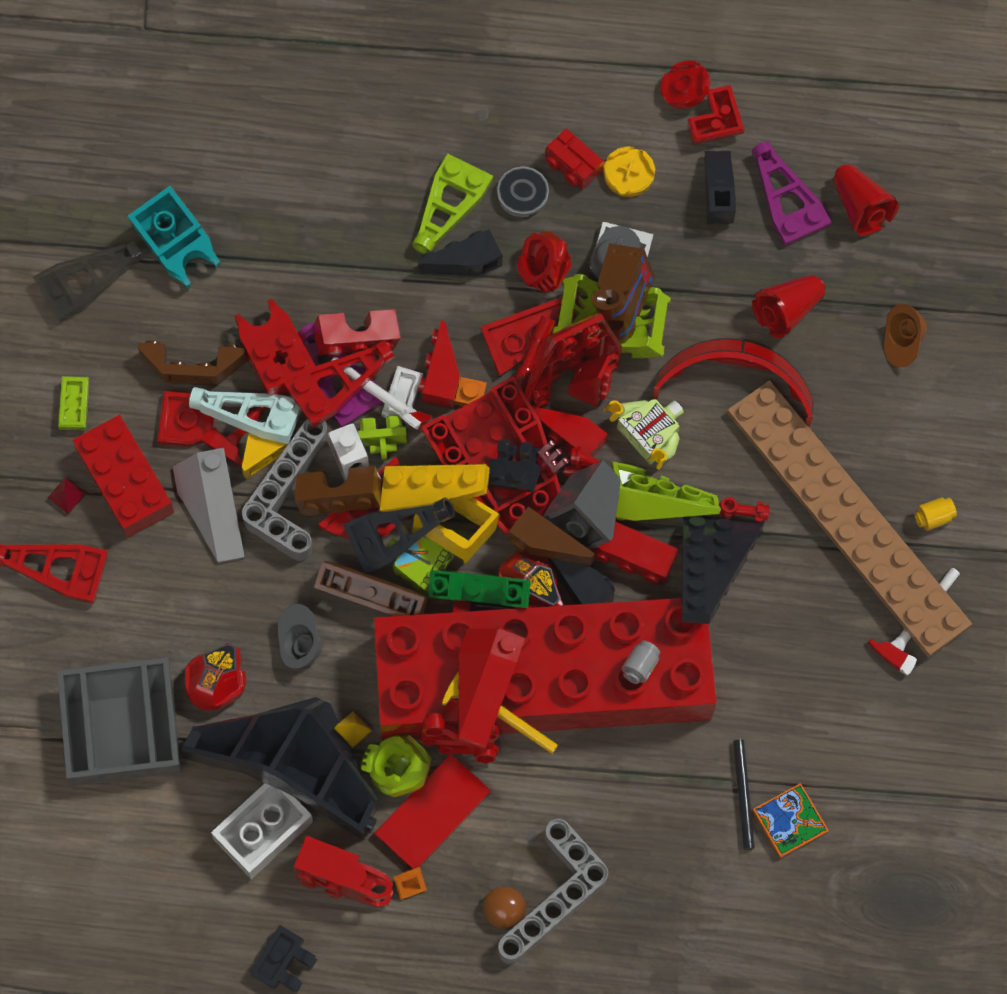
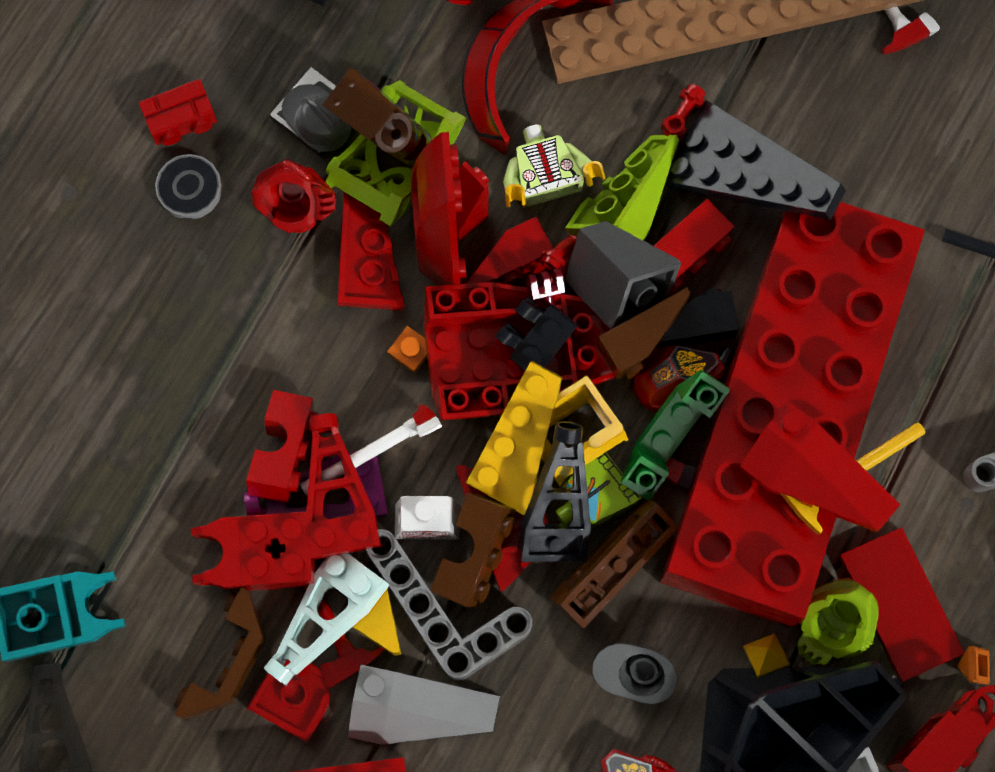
camera: 65 degrees left, 5 degrees up
(382, 439) = (424, 456): lime hips -> none
(404, 388) = (373, 423): white tile -> none
(435, 726) = (835, 553): red plant -> none
(443, 375) = (374, 368): red slope -> none
(459, 176) = (142, 243): lime plate -> none
(468, 257) = (244, 278): black slope -> none
(542, 331) = (386, 242): red piece -> none
(629, 171) = (220, 61): yellow tile -> none
(641, 662) = (859, 286): light grey brick -> none

